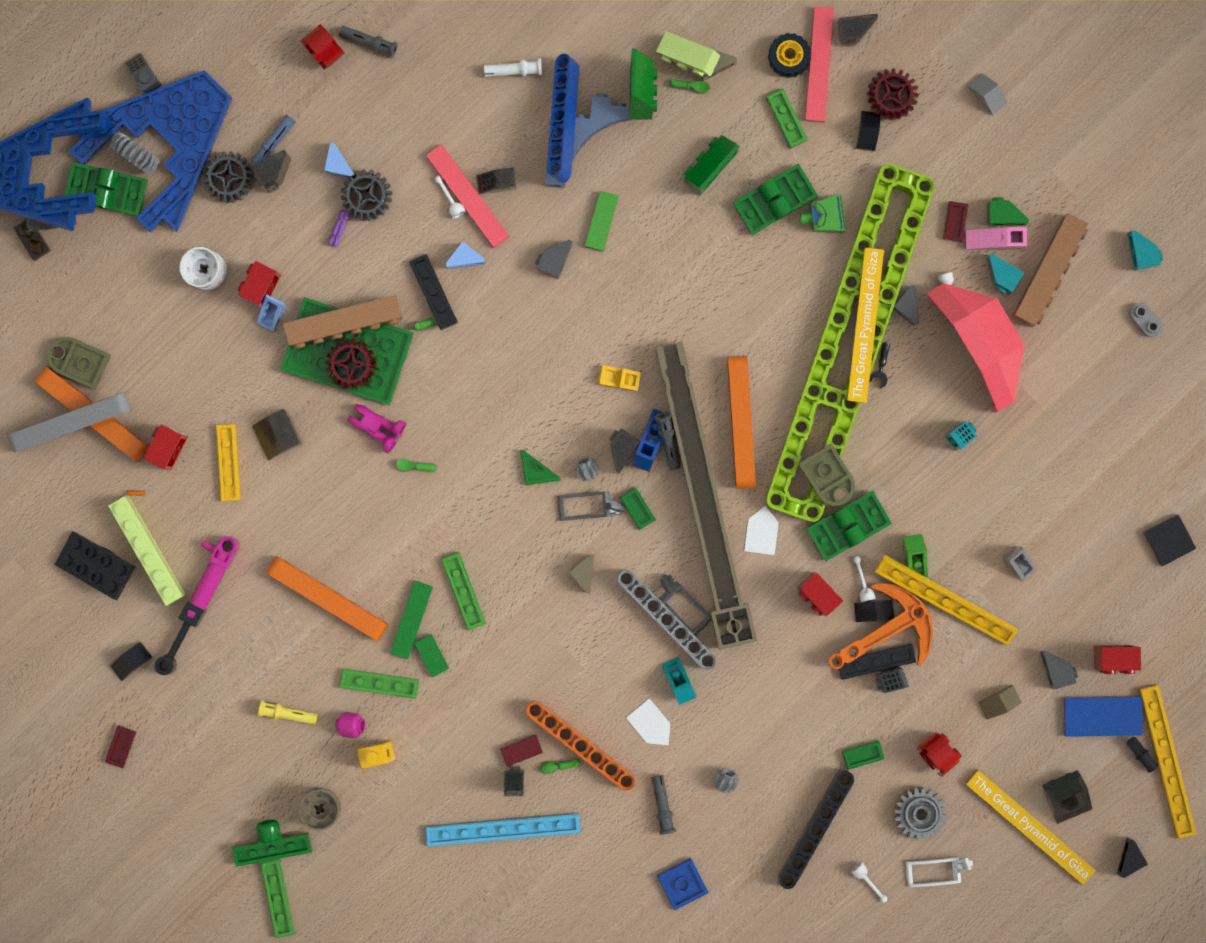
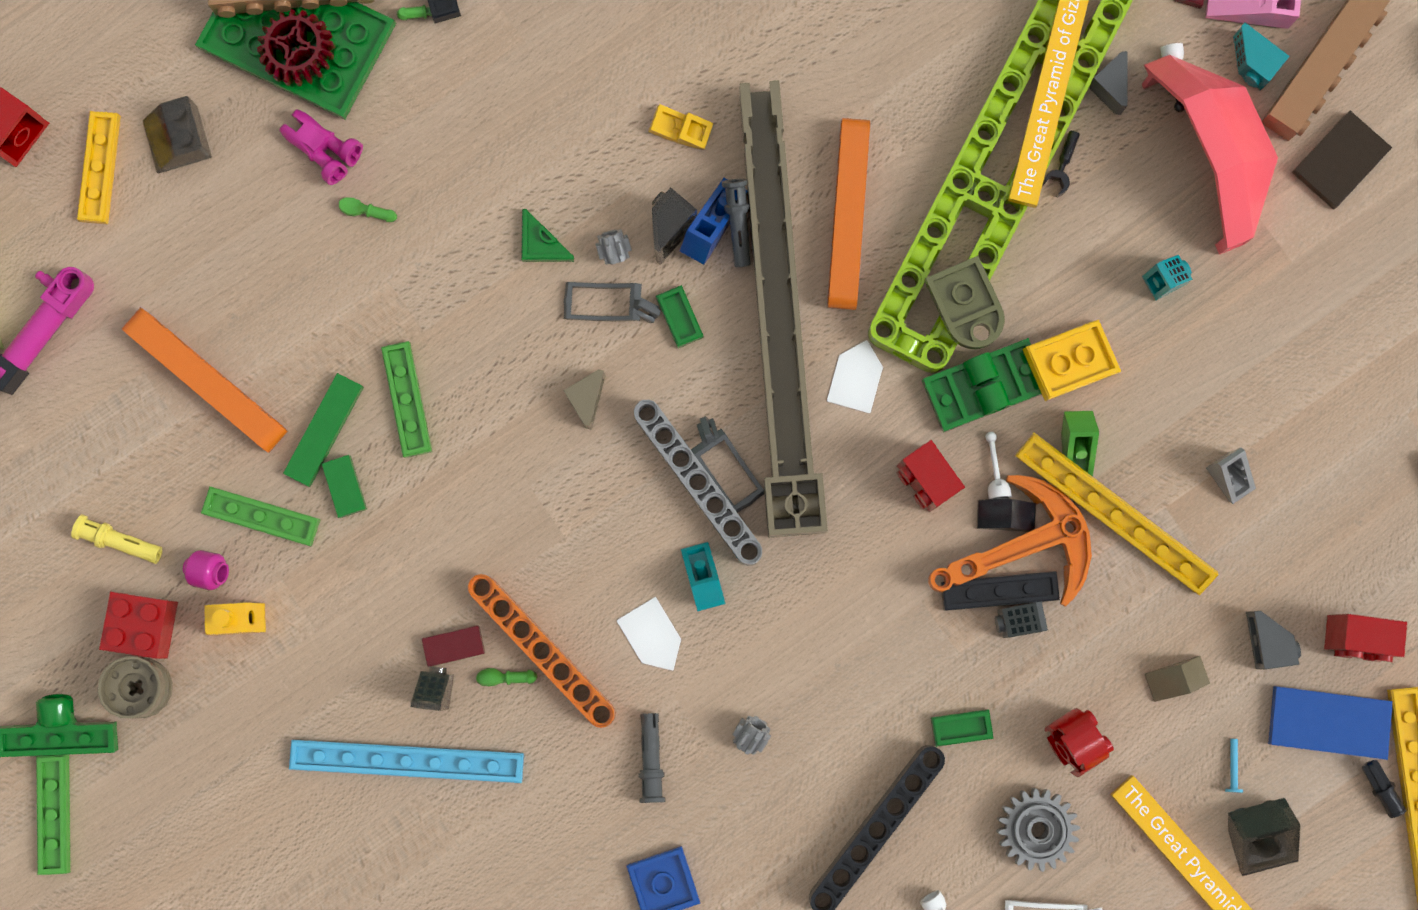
camera: 10 degrees right, 5 degrees down
(313, 767) = (138, 625): none -> red brick
(904, 501) = (1071, 360): none -> yellow tile
(1043, 754) = (1234, 767): none -> medium azure pin
(1069, 335) = (1342, 160): none -> dark brown tile

